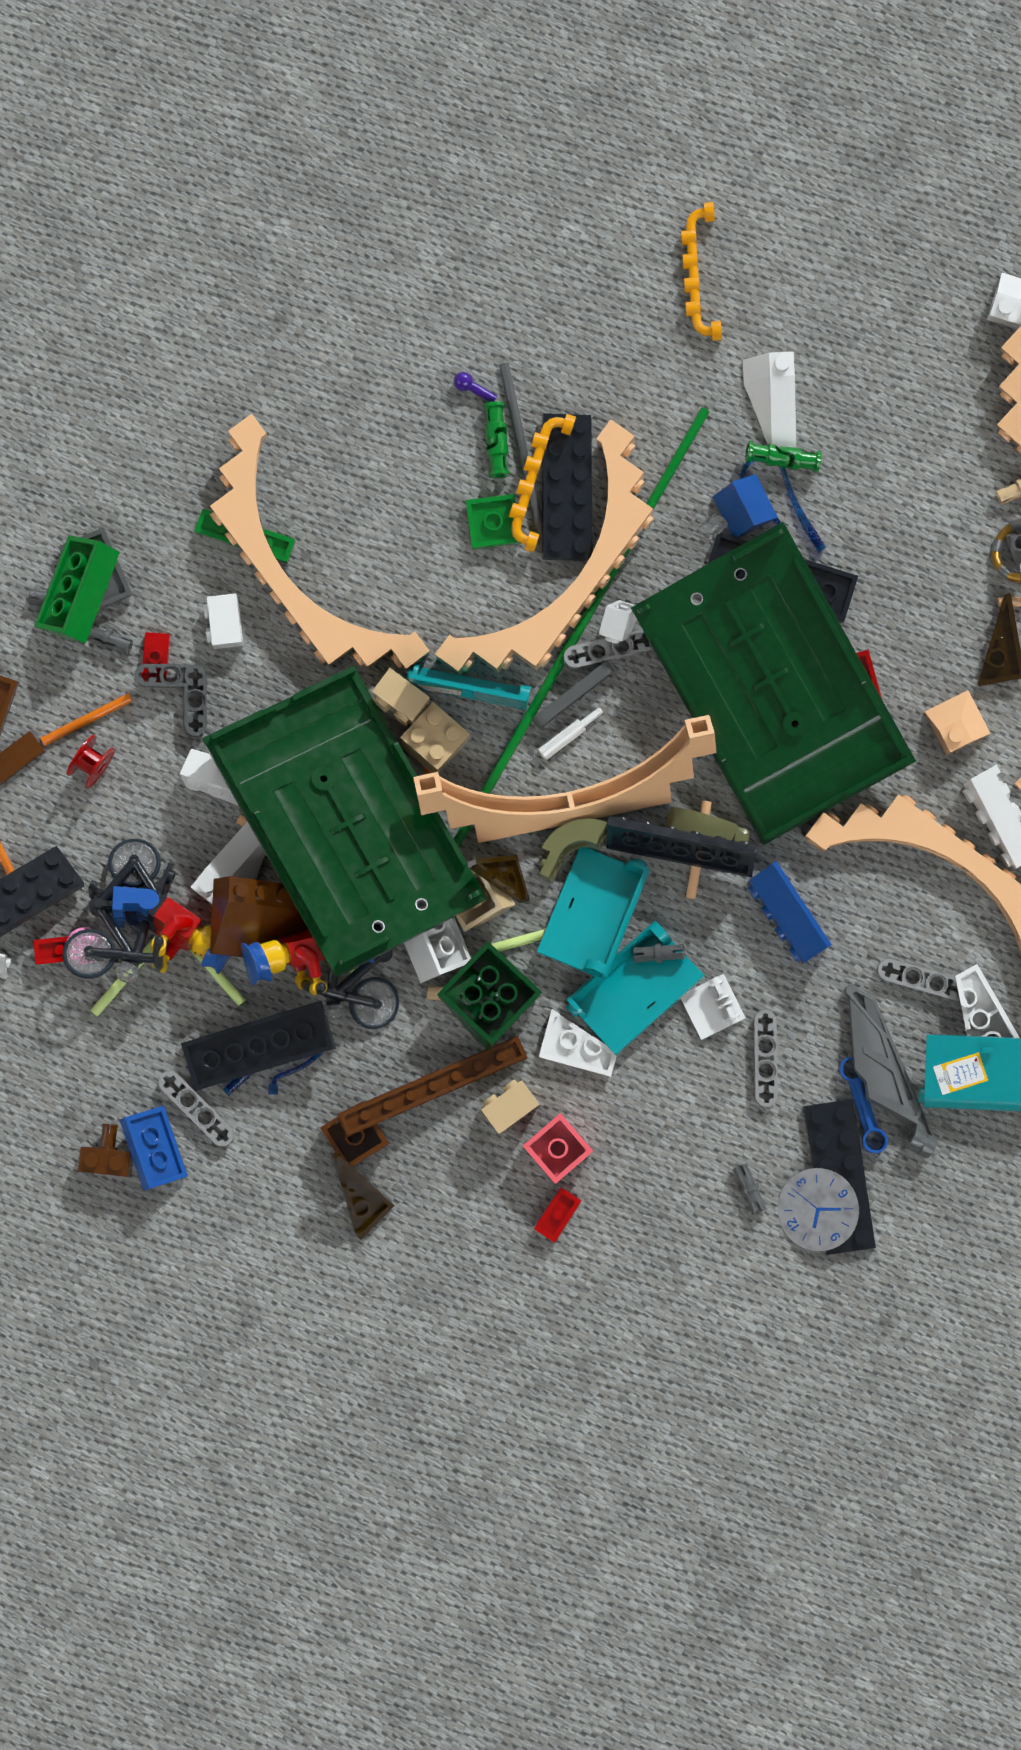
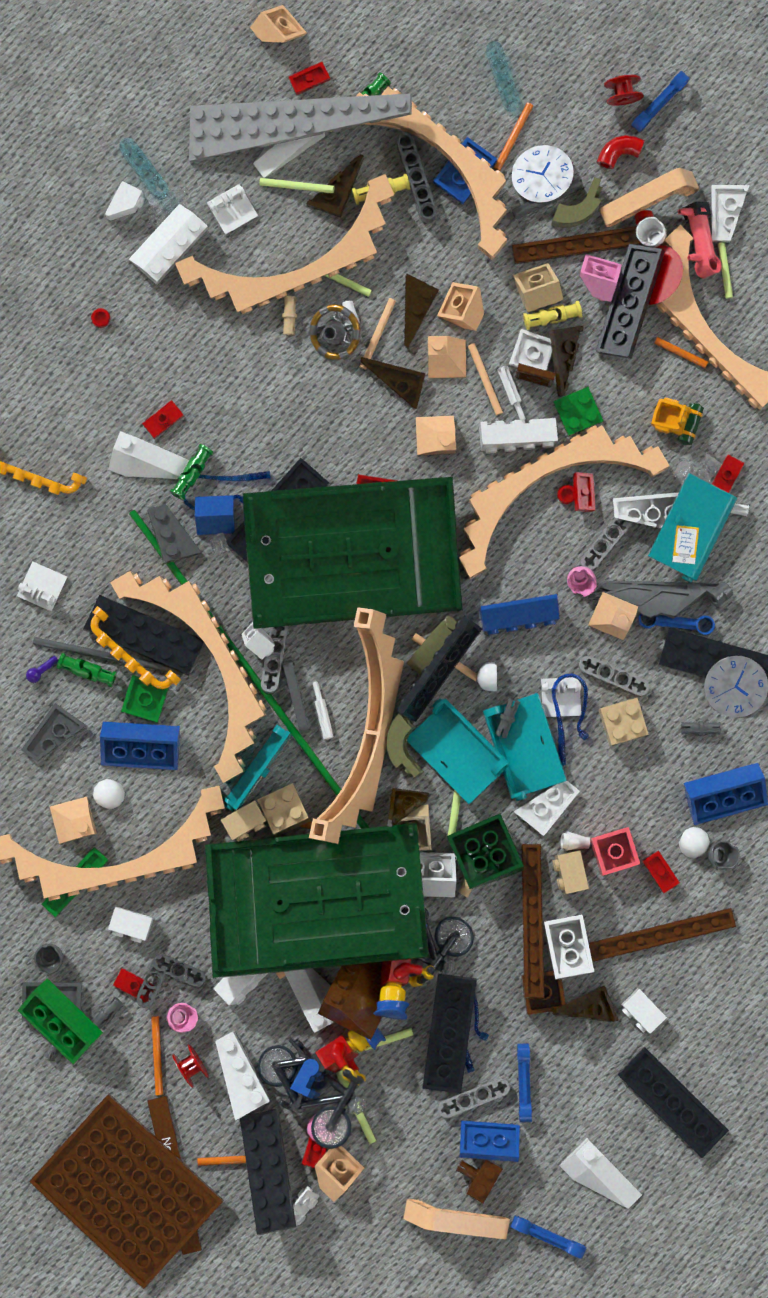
camera: 65 degrees left, 0 degrees up
(42, 985) = (337, 1172): none -> light nougat slope
(43, 1150) = (455, 1221): none -> light nougat beam
(72, 1237) = (568, 1245): none -> blue piece
(102, 826) = (241, 1079): none -> white wedge
(142, 728) = (182, 1017): none -> bright pink hair
(143, 545) = (48, 958): none -> dark grey hair
(170, 1294) = (596, 1172): none -> white wedge
(239, 1160) = (523, 1058): none -> blue piece
(292, 1346) = (672, 1102): none -> black plate
(315, 502) = (73, 820): none -> light nougat slope
(364, 529) = (108, 794): none -> white hair
(383, 1265) = (643, 1011): none -> white brick
(406, 432) = (52, 732): none -> dark grey wing
(420, 1141) = (568, 947): none -> white slope
(435, 539) = (140, 745): none -> blue slope
(481, 1245) = (661, 934): none -> reddish brown tile
(547, 1094) = (573, 841): none -> white cone
(571, 345) = (41, 586): none -> white hinge
(610, 1239) = (694, 842): none -> white hair
(610, 1280) = (723, 855): none -> dark grey hair
(680, 1051) = (561, 737): none -> clear blue piece
(684, 1252) = (726, 793): none -> blue slope
(697, 466) = (170, 535): none -> dark grey wing
(697, 907) = (487, 676): none -> white hair
(715, 1092) = (623, 721): none -> tan brick
(830, 396) = (163, 419): none -> red plate
(836, 1025) = (613, 616): none -> light nougat slope
(861, 970) = (581, 580): none -> bright pink hair
(917, 271) = (100, 318): none -> red tile
(957, 908) = (566, 494): none -> red tile
(969, 927) = (584, 492): none -> plate

